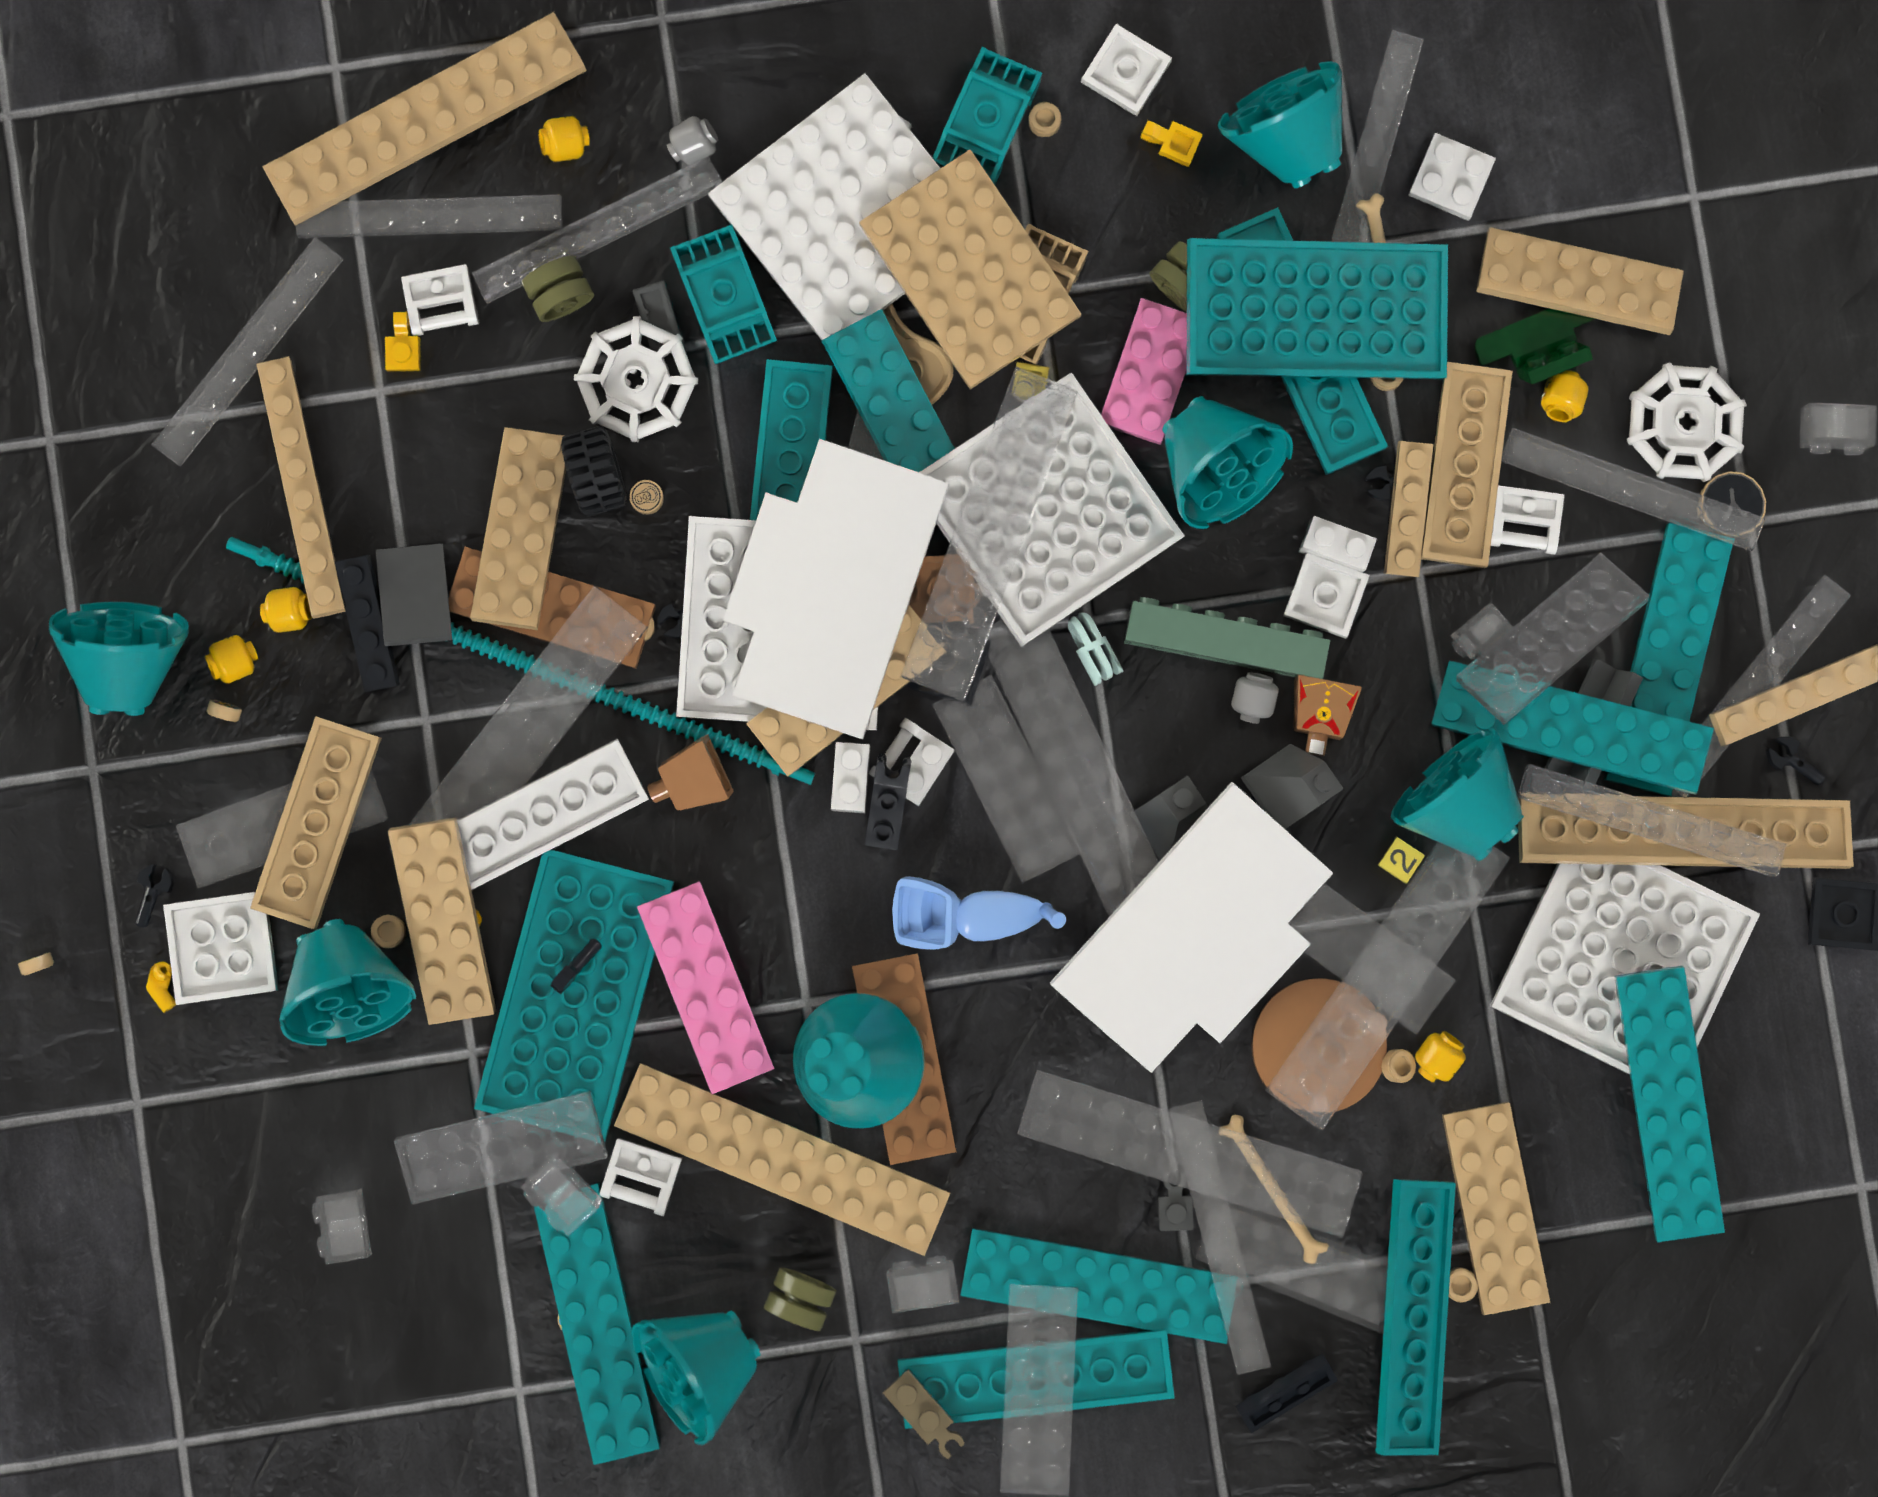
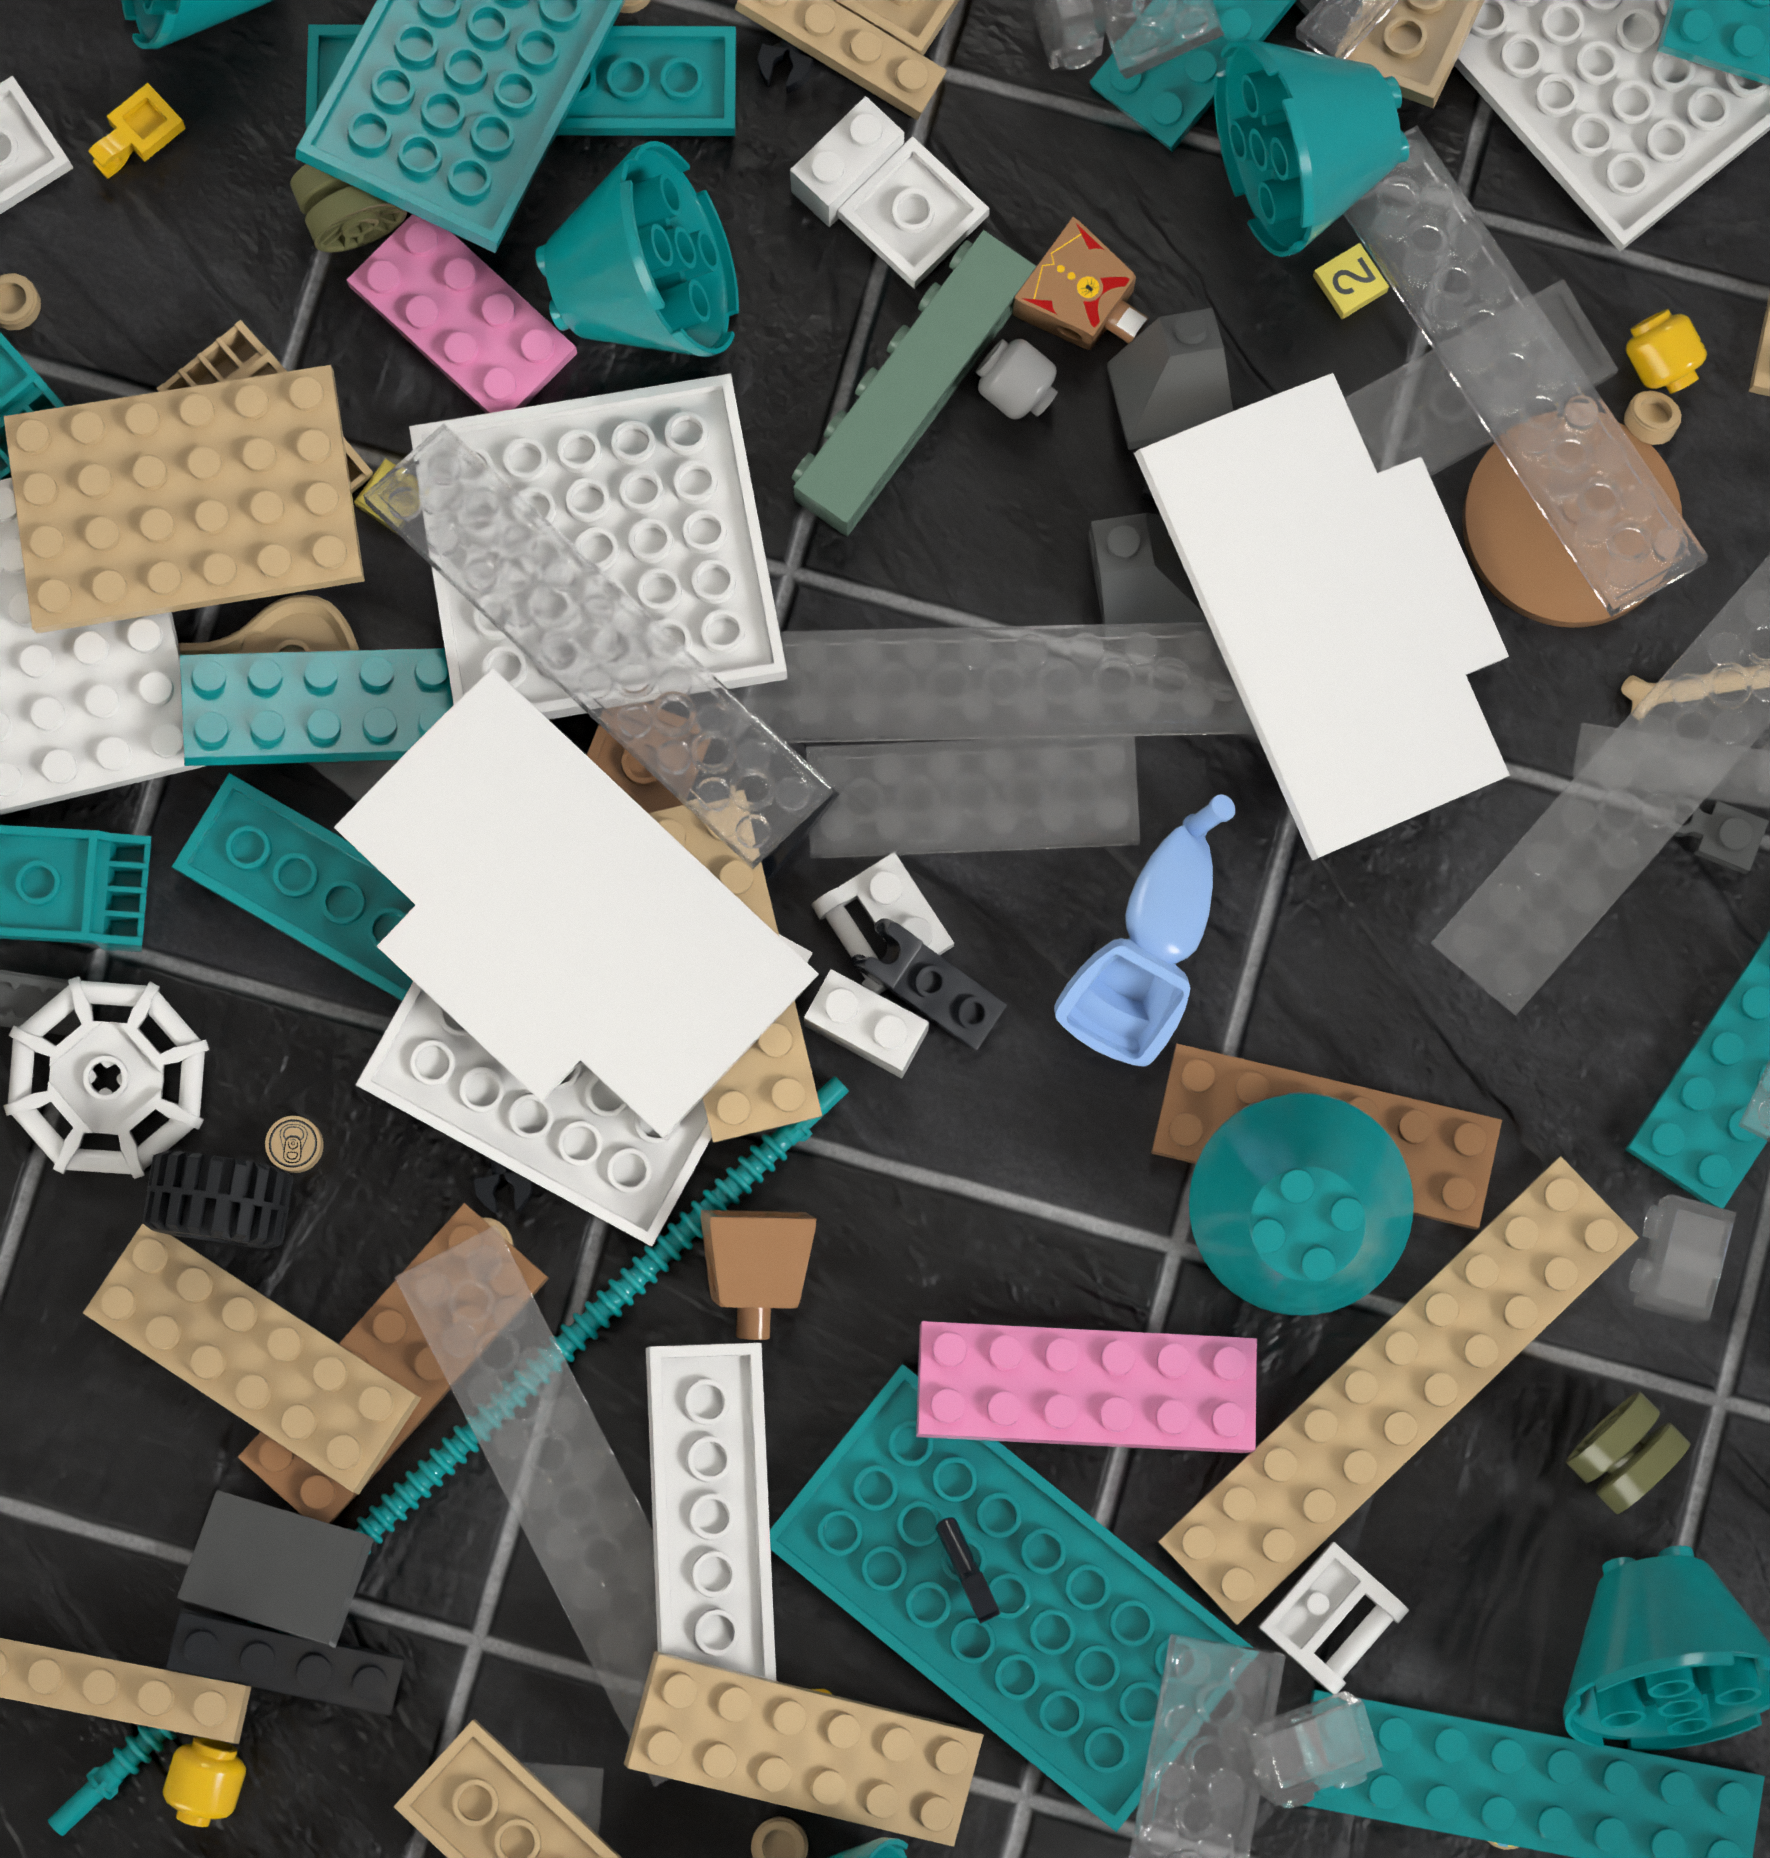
camera: 65 degrees left, 5 degrees down
(1093, 649) = (836, 580): light aqua arm -> none

